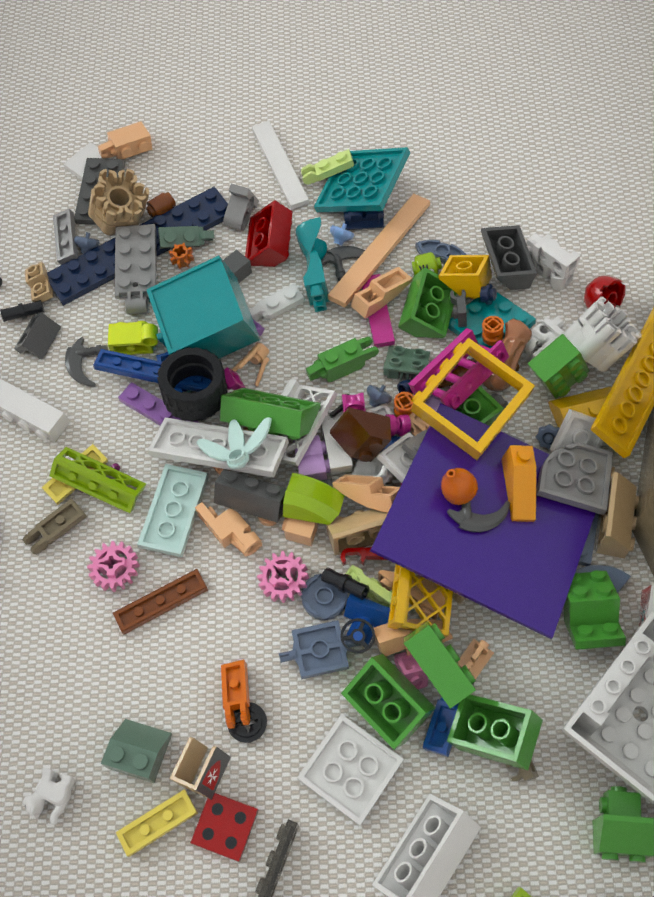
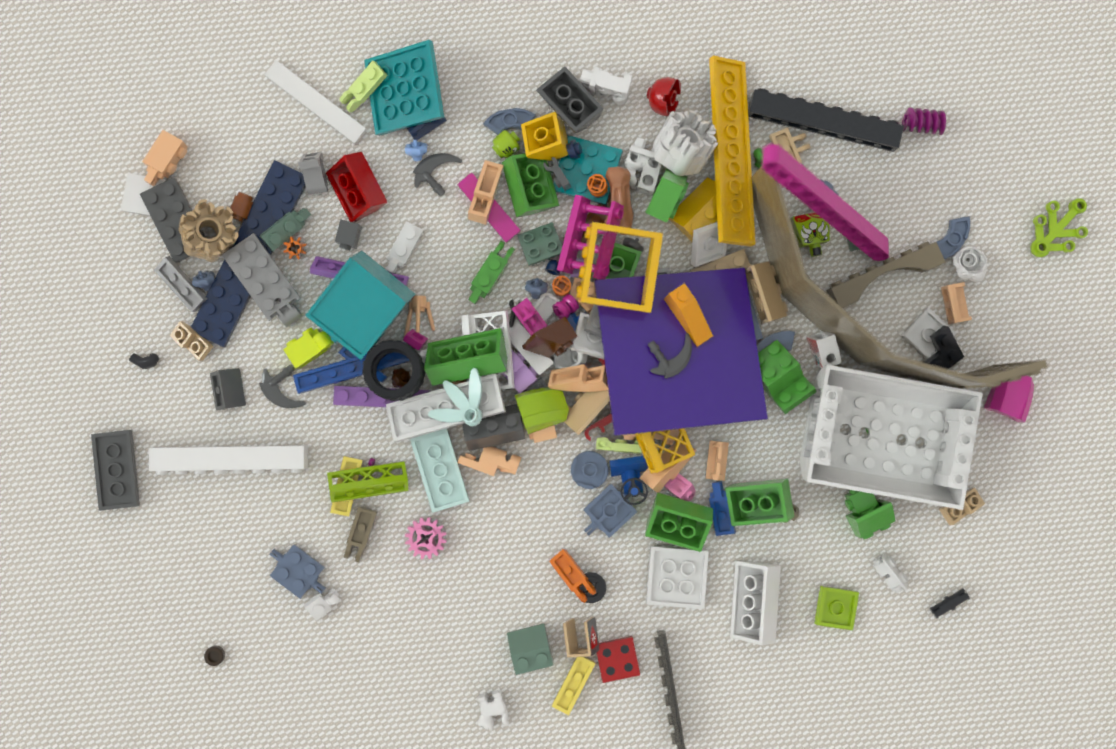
camera: 40 degrees left, 25 degrees up
(22, 311) = (197, 374): black pin -> none
(160, 601) = (475, 541): dark orange tile -> none
(278, 586) = (544, 472): bright pink gear -> none
(314, 251) = (401, 177): teal hips -> none
(345, 583) = (601, 456): black pin -> none
(378, 250) = (458, 147): light nougat tile -> none
(440, 663) = (703, 483): bright green brick -> none
(459, 486) = (649, 348): orange helmet -> none
(547, 435) = (683, 250): sand blue piece -> none
(577, 477) = (724, 281): light grey plate -> none

